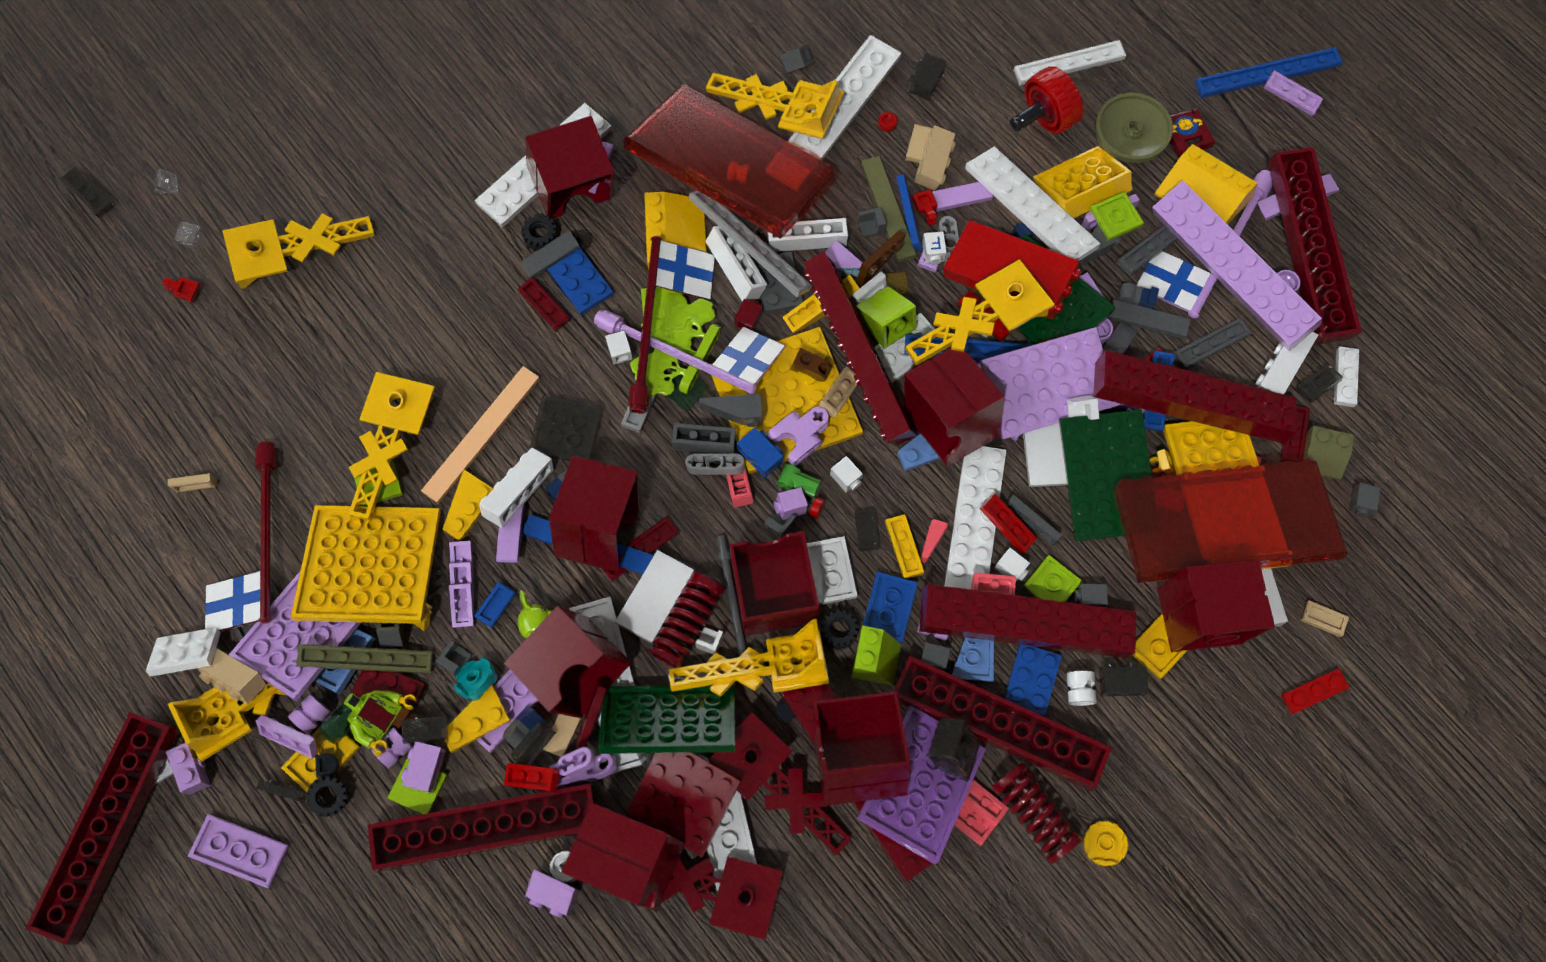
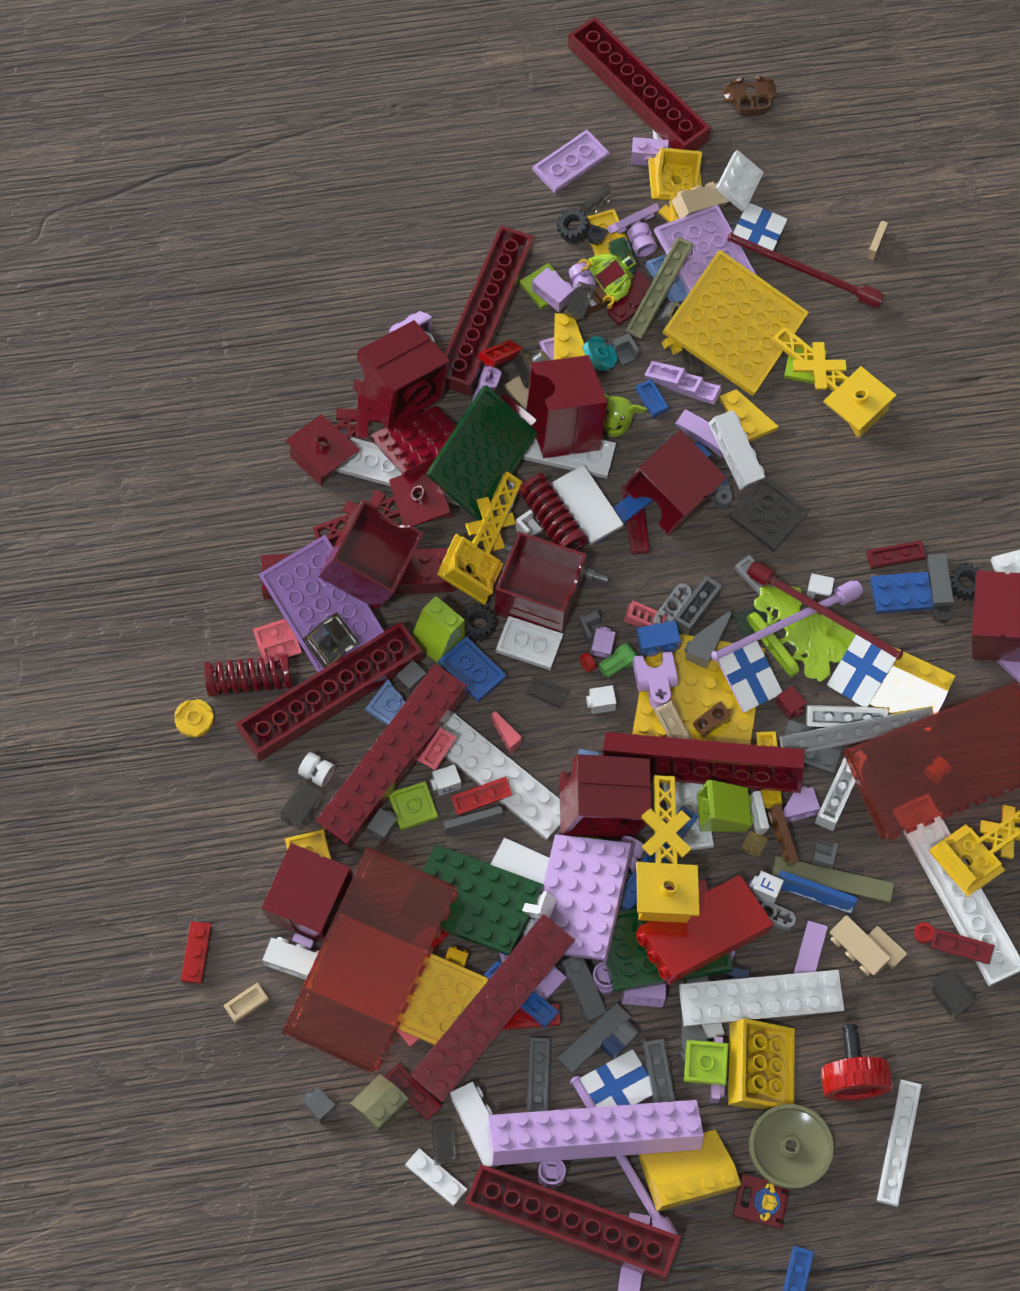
camera: 120 degrees right, 5 degrees down
(64, 719) = (736, 93): none -> reddish brown piece
(480, 435) = (803, 454): light nougat tile -> none
(884, 84) = (962, 946): none -> dark red tile
(904, 546) = (514, 709): yellow plate -> none
(926, 204) = (818, 912): red plate -> none
(1032, 678) = (345, 739): blue plate -> none

